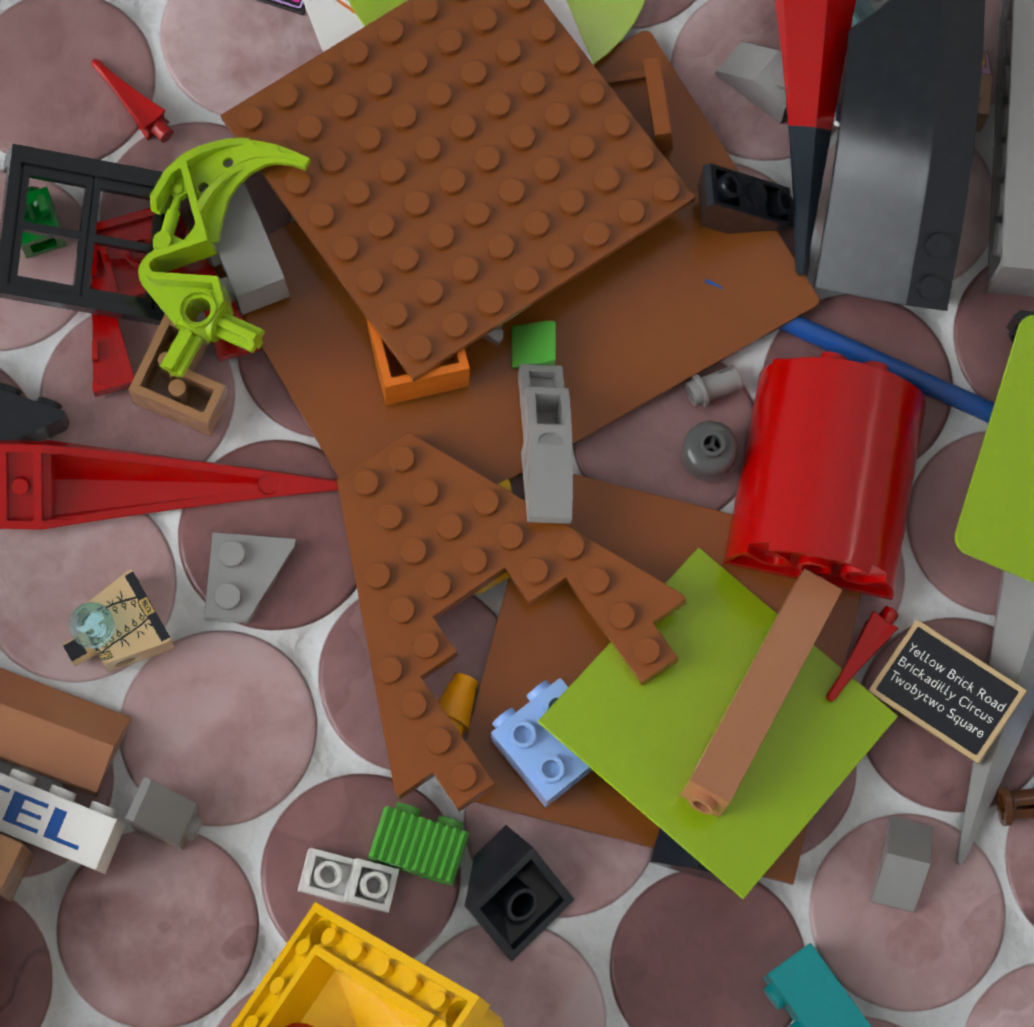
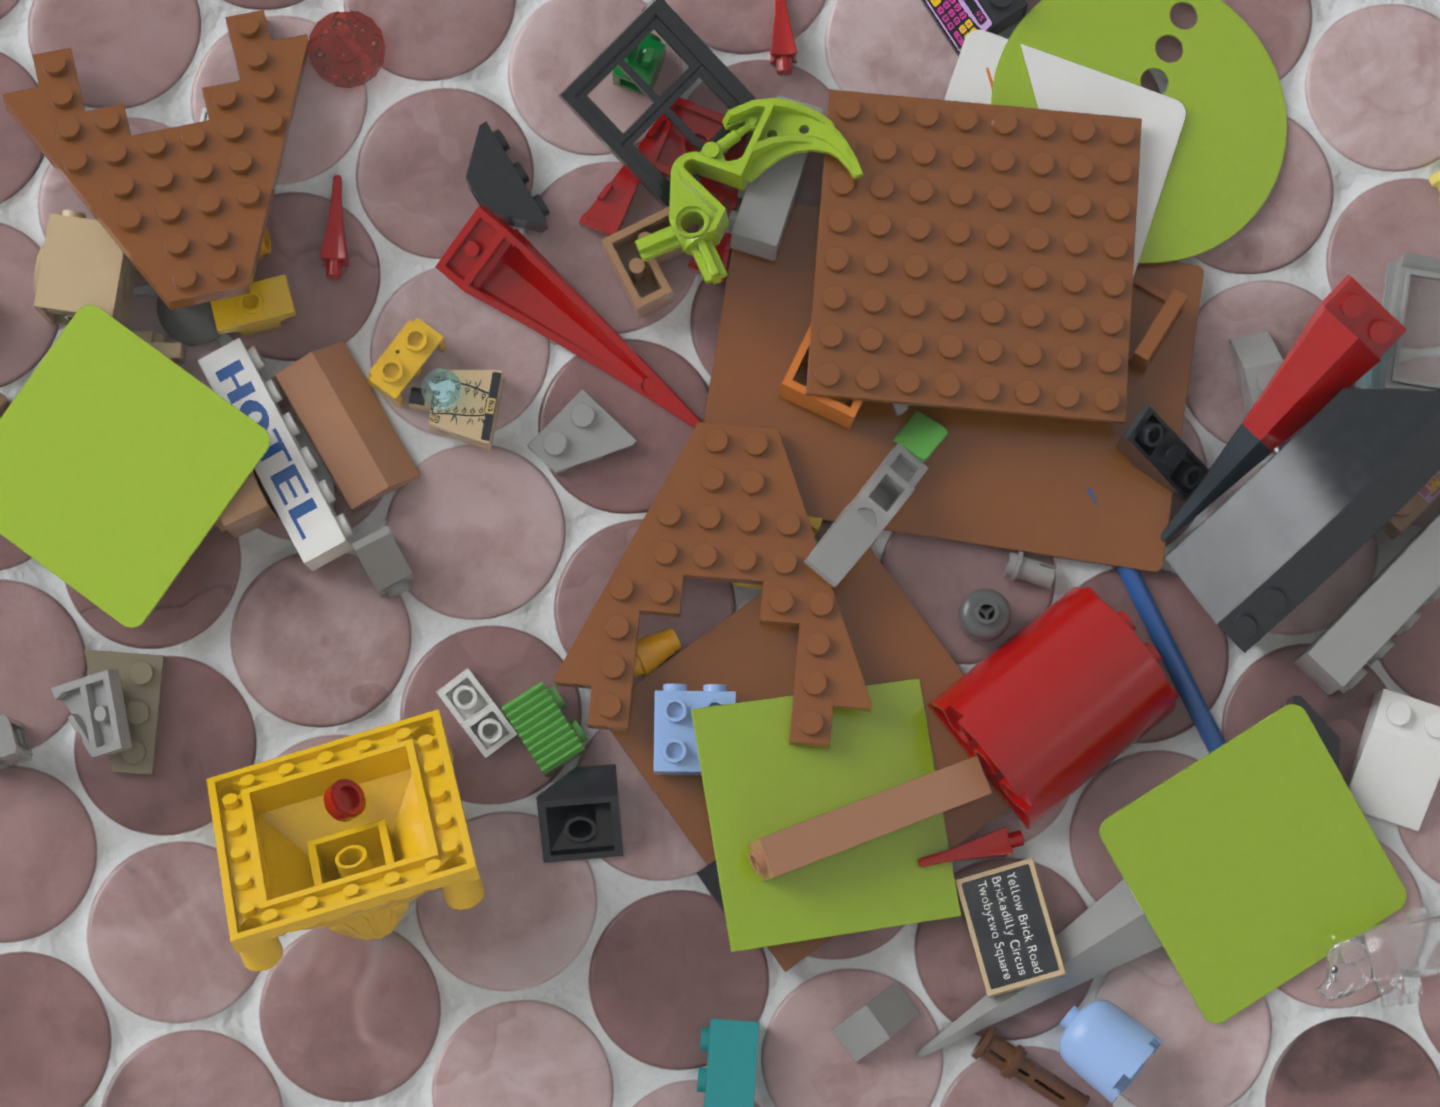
camera: 45 degrees right, 5 degrees up
(38, 628) = (404, 359): none -> yellow window

